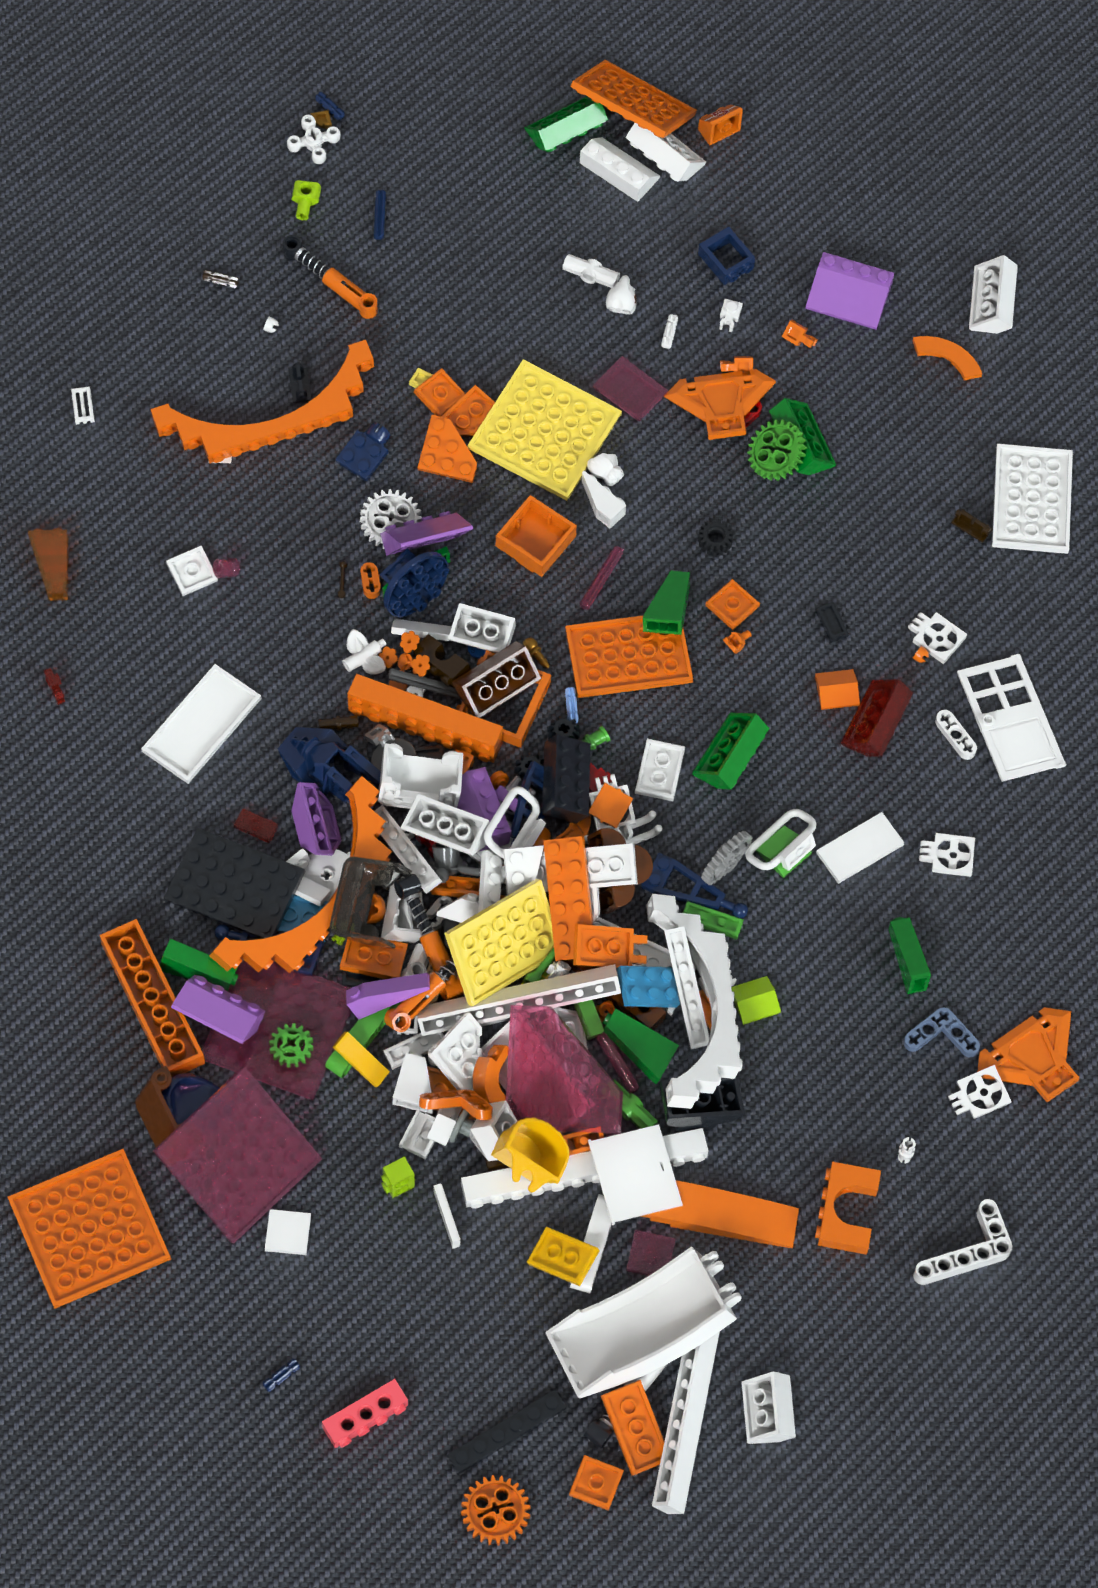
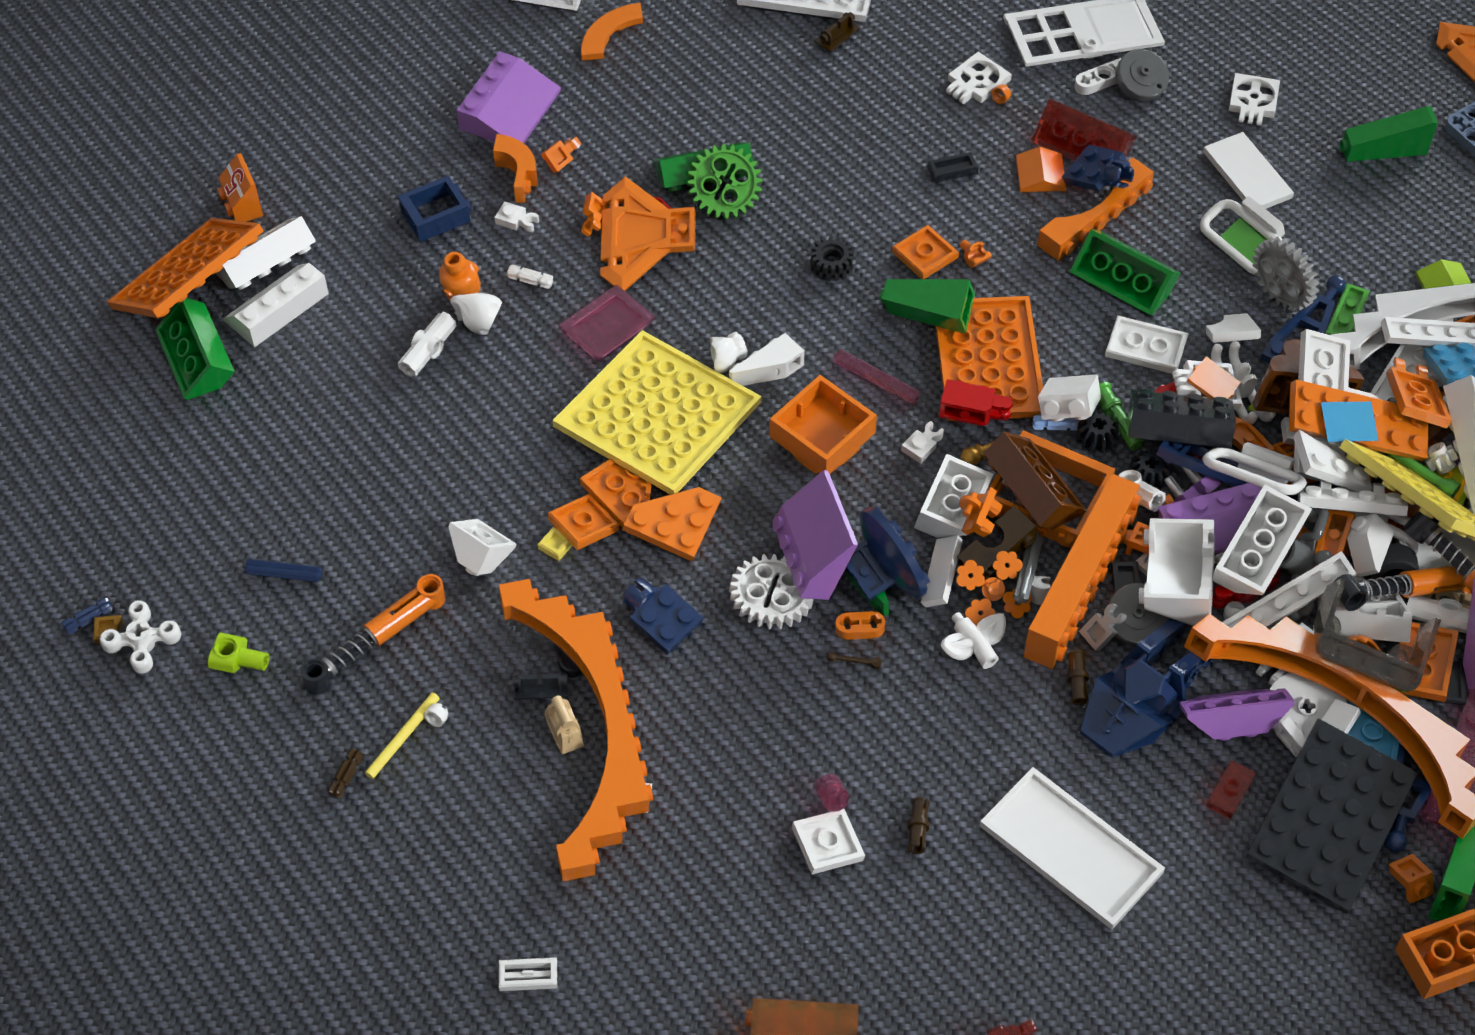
camera: 80 degrees left, 10 degrees down
(194, 937) = (1414, 877): none -> orange bracket
(208, 625) = (918, 825): none -> dark brown pin
(252, 307) = (400, 737): none -> light yellow bar
(267, 401) = (563, 725): none -> tan piece
(411, 329) = (479, 546): none -> white slope
(469, 644) = (976, 509): none -> orange hips
(504, 758) = (1151, 496): none -> white piece
(540, 612) = (920, 444): none -> white plate
(559, 884) = (1349, 421): none -> dark azure sticker
(571, 637) = (973, 403): none -> red hinge
(583, 703) = (1069, 397): none -> white brick
(651, 280) = (459, 275): none -> orange piece
(675, 829) = (1233, 328): none -> white tile
(780, 311) = (518, 158): none -> orange arch
(826, 751) = (1066, 233): none -> orange arch
(830, 722) = (1099, 168): none -> dark blue plate
(955, 760) = (1142, 75): none -> dark grey wheel

